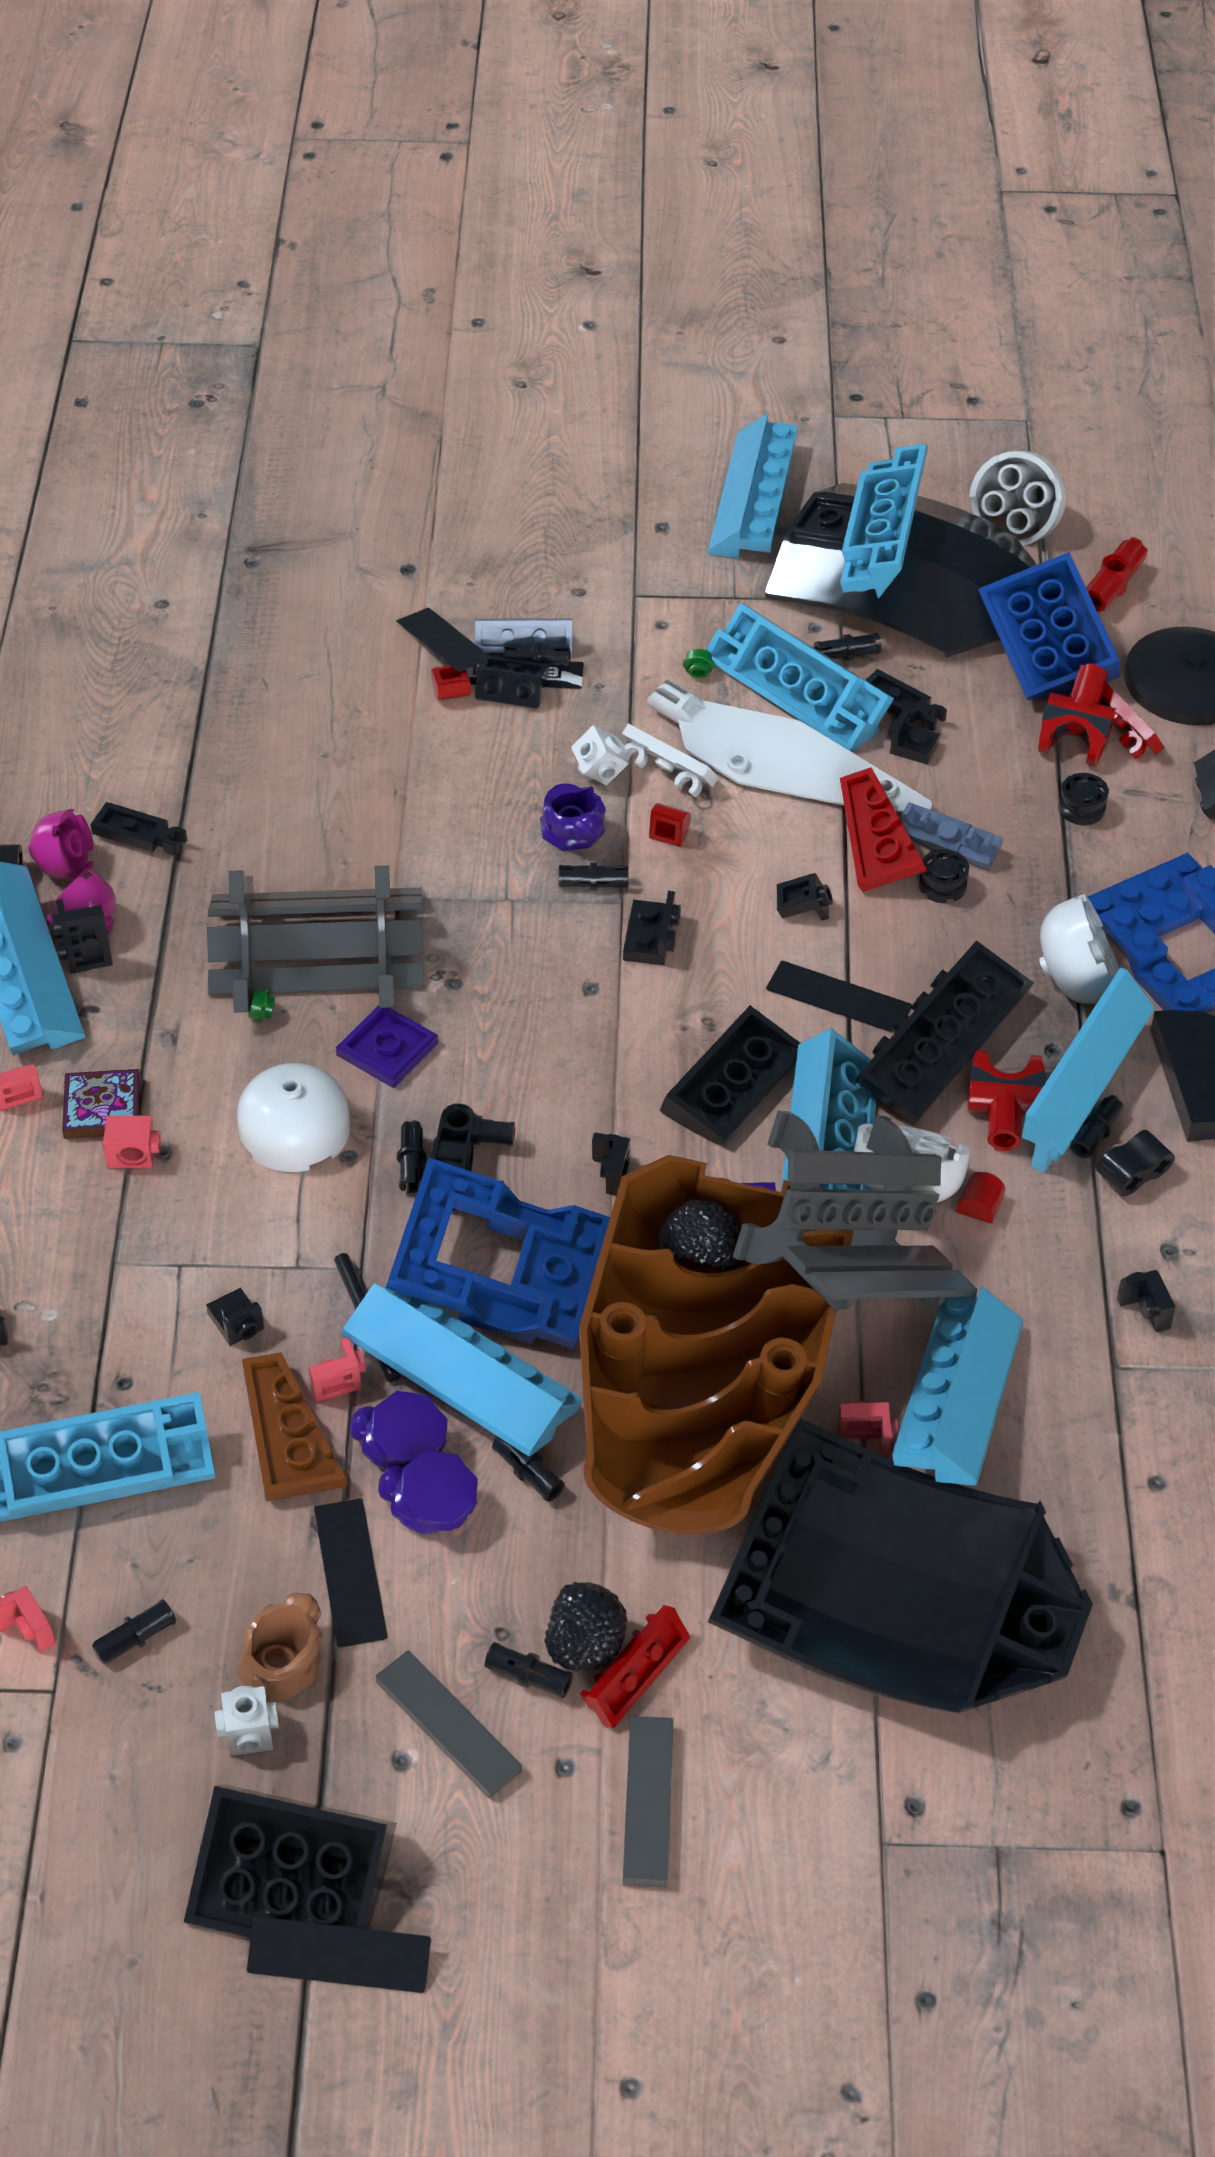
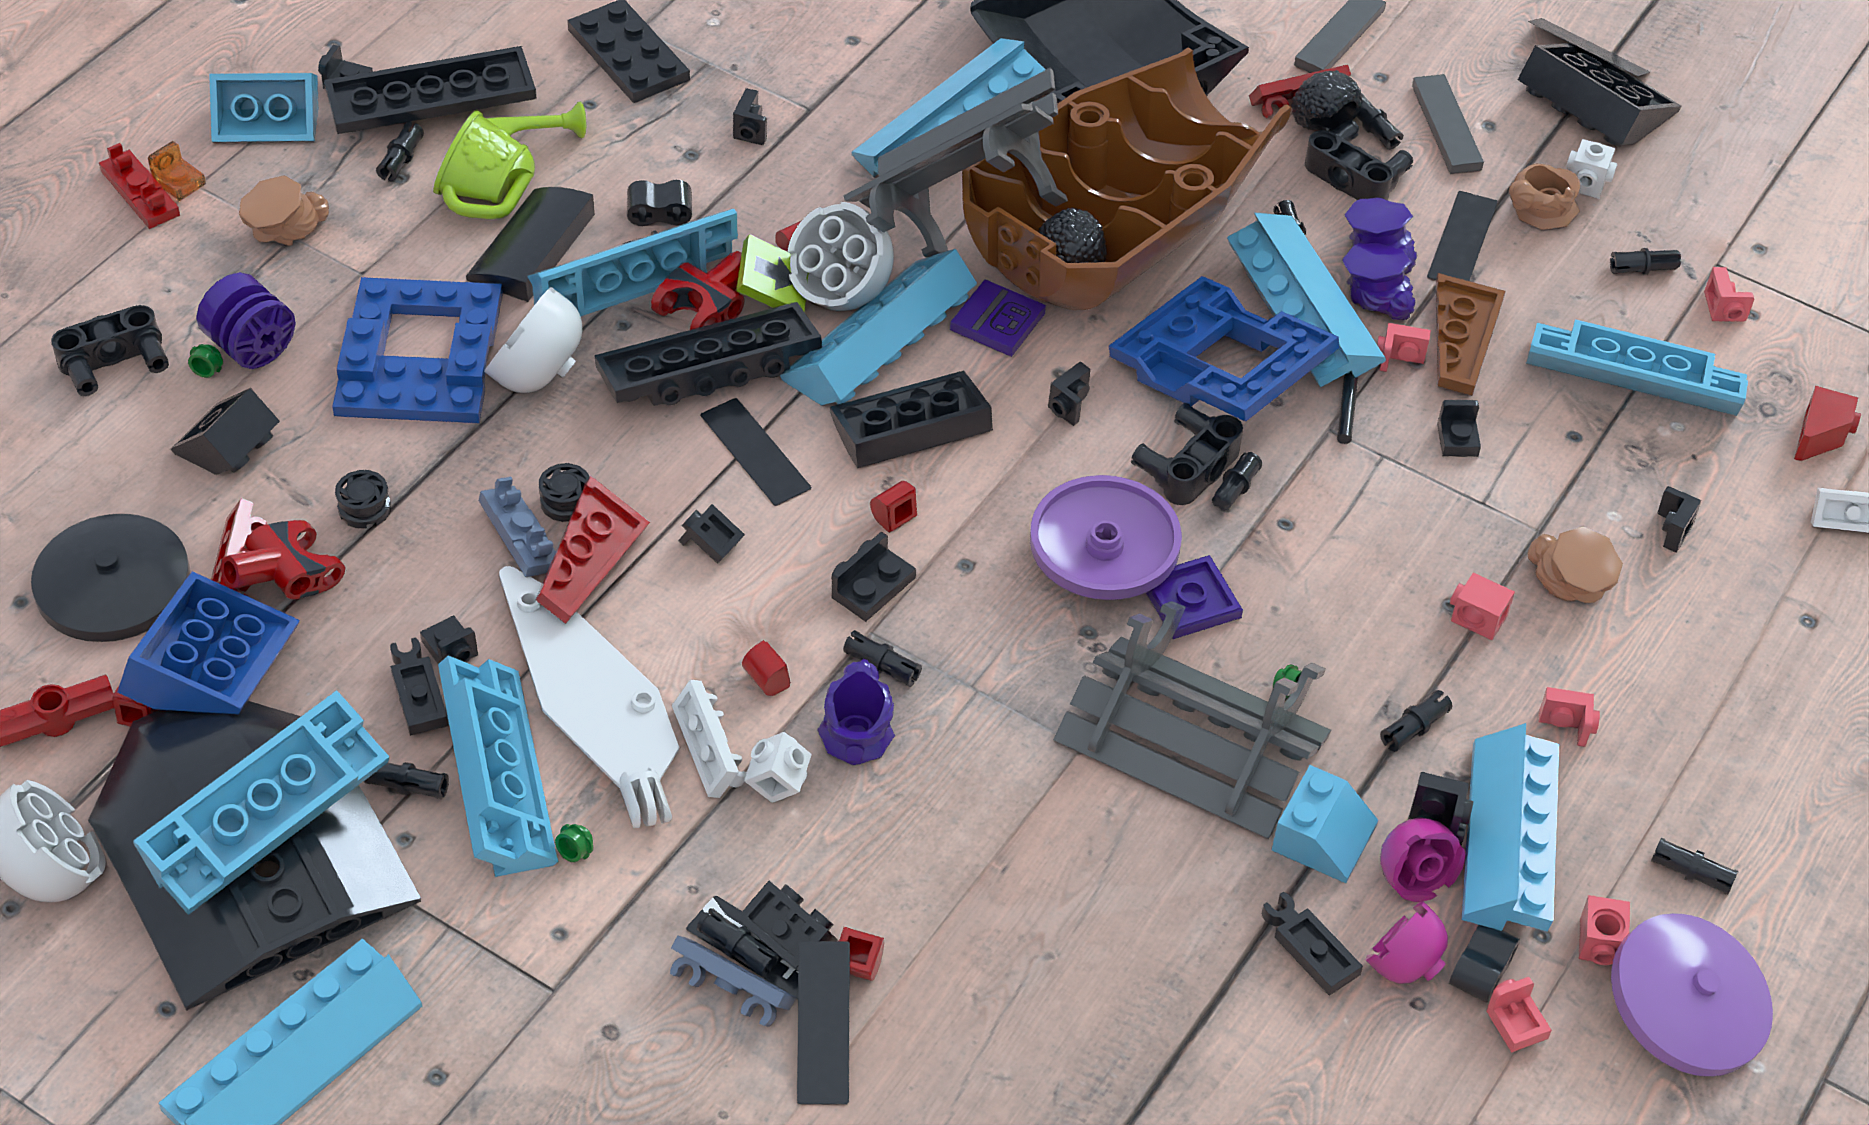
camera: 150 degrees left, 0 degrees up
(61, 1212) = (1576, 564): none -> nougat piece
(96, 1095) = (1488, 667): tile -> none
(140, 1027) = (1416, 720): none -> black pin
(171, 908) = (1325, 825): none -> medium azure slope
(293, 1117) = (1321, 559): white cylinder -> none
(485, 1033) = (1105, 537): none -> medium lavender dish
(510, 1575) = (1350, 167): none -> black piece
(682, 990) = (895, 506): none -> red brick
(967, 1121) = (766, 274): none -> tile

